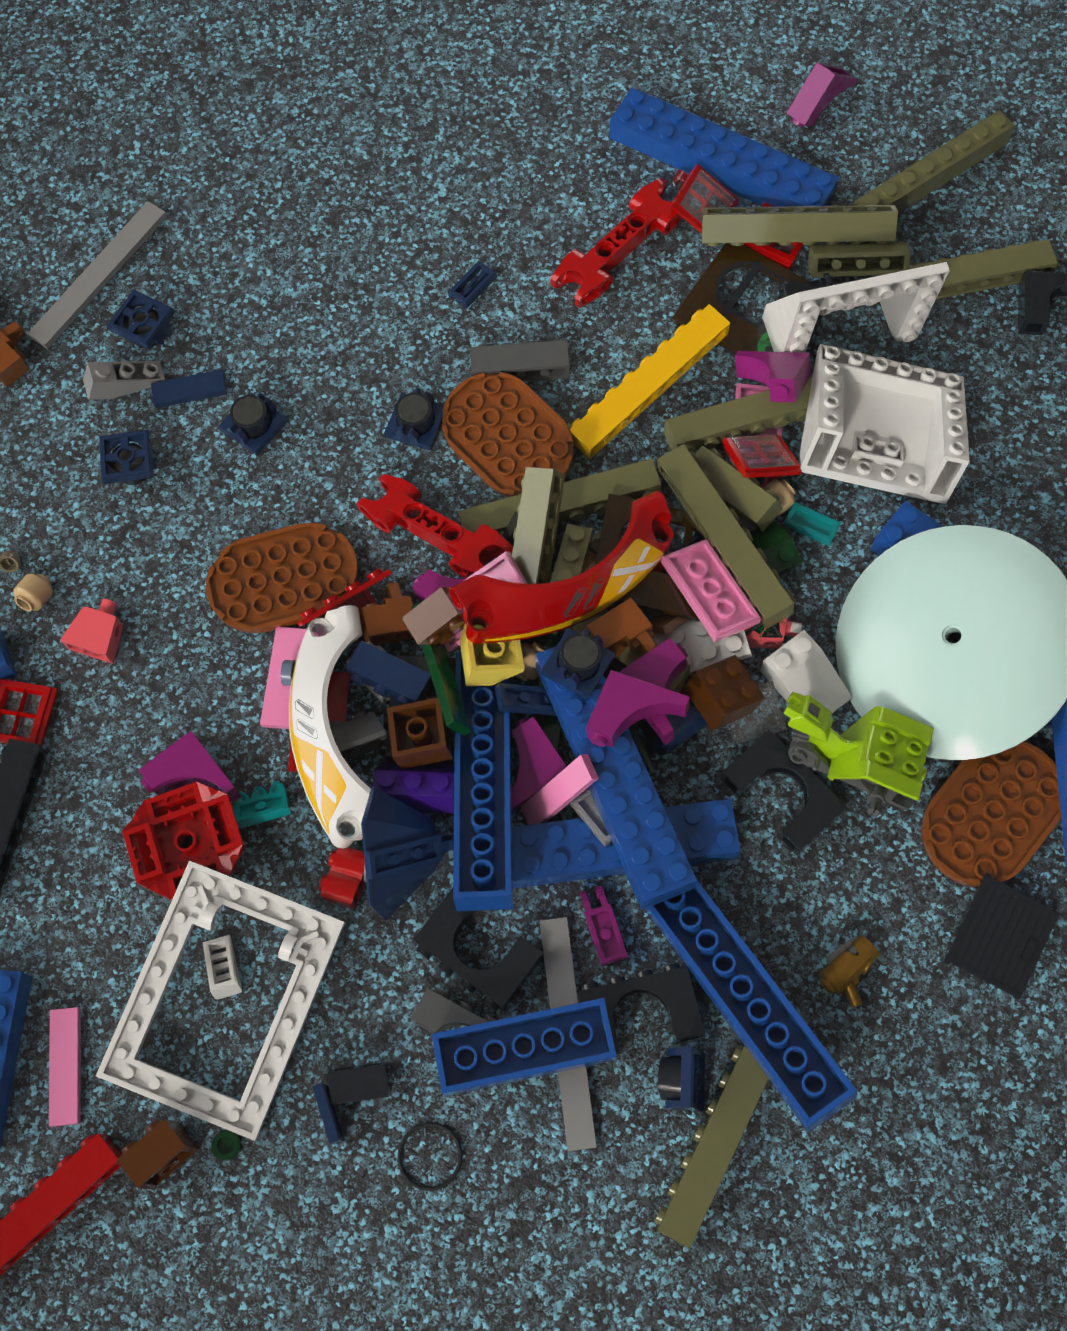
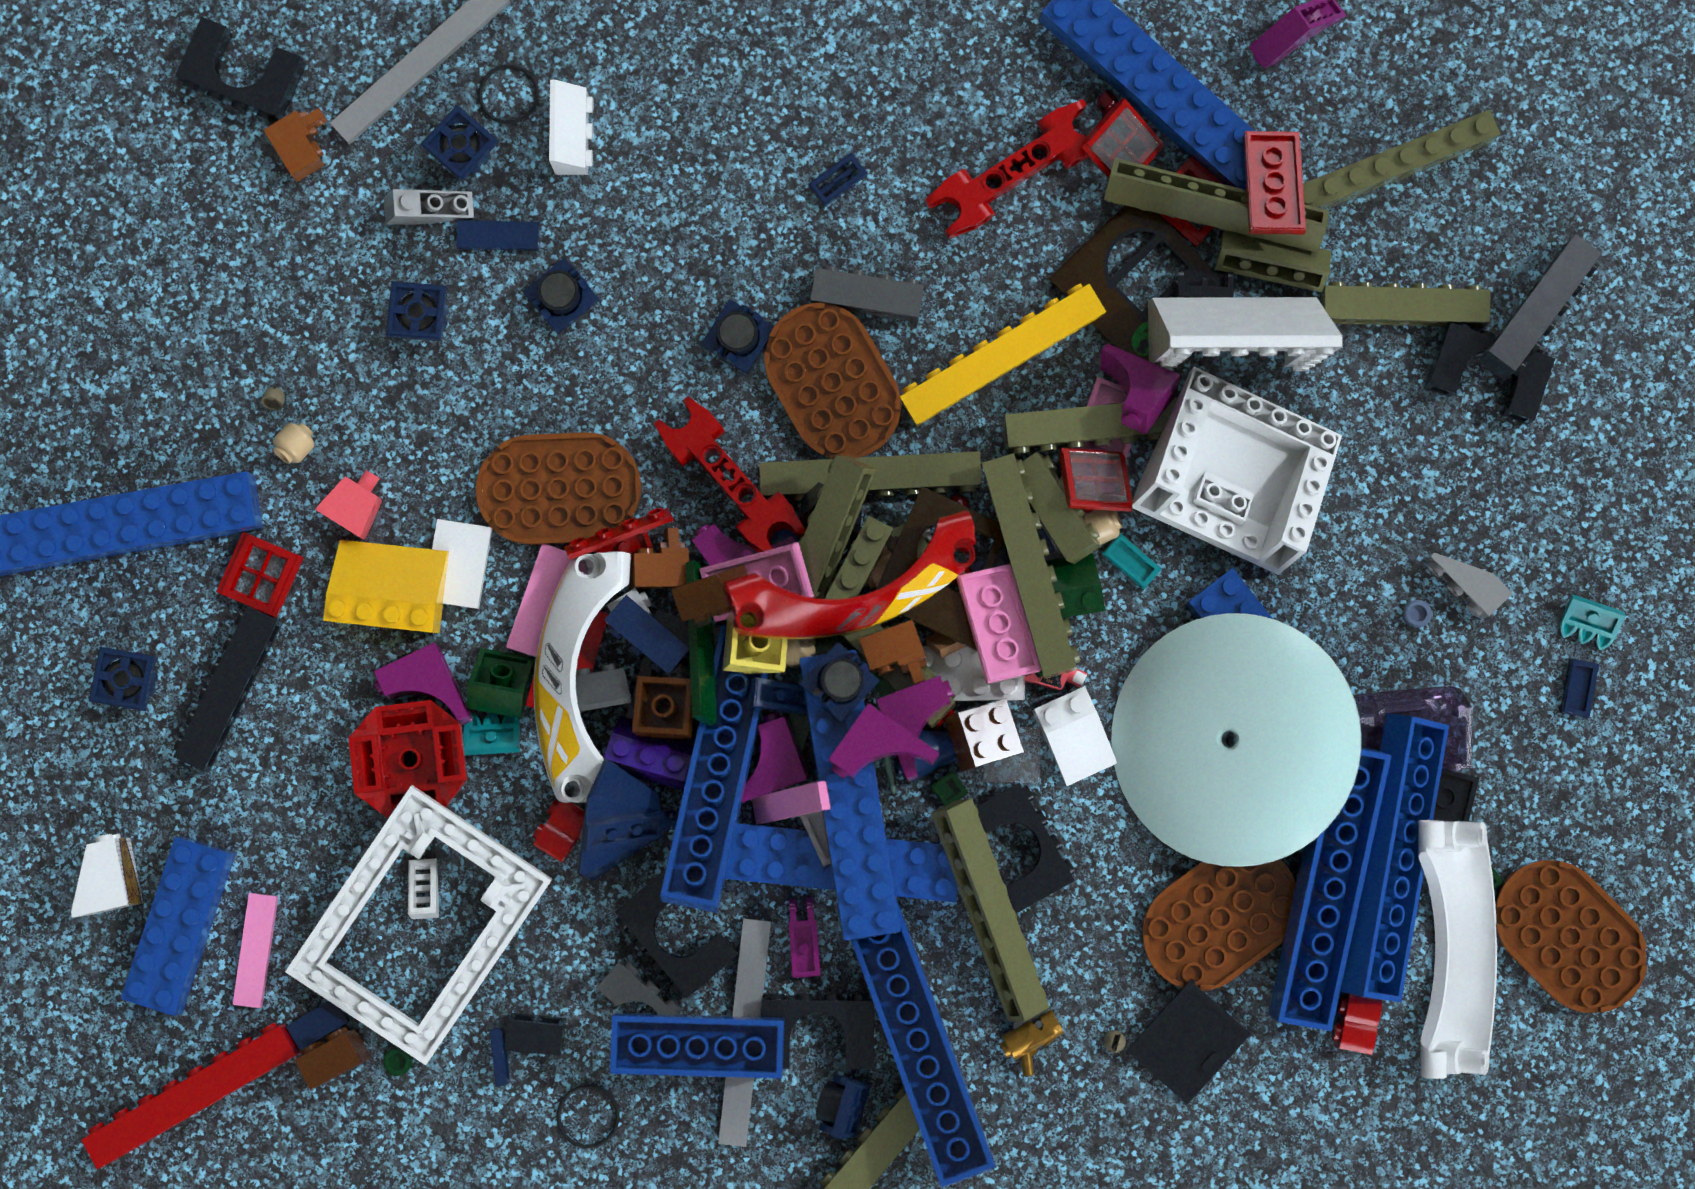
camera: 10 degrees right, 15 degrees up
(135, 1123) = (317, 1024): none -> dark blue tile
(139, 697) = (387, 586): none -> yellow slope
(172, 263) = (518, 119): none -> black piece
(202, 663) = (467, 560): none -> white tile
(234, 290) = (570, 129): none -> white slope
(260, 757) = (500, 683): none -> dark green slope
(287, 671) = (544, 601): sand blue tile -> none
(704, 757) = (949, 789): none -> dark green tile
(776, 852) = (990, 910): none -> olive brick
(842, 191) = (1274, 182): none -> tile
(876, 754) = (1114, 838): lime piece -> none
(924, 954) = (1109, 1038): none -> dark tan hinge

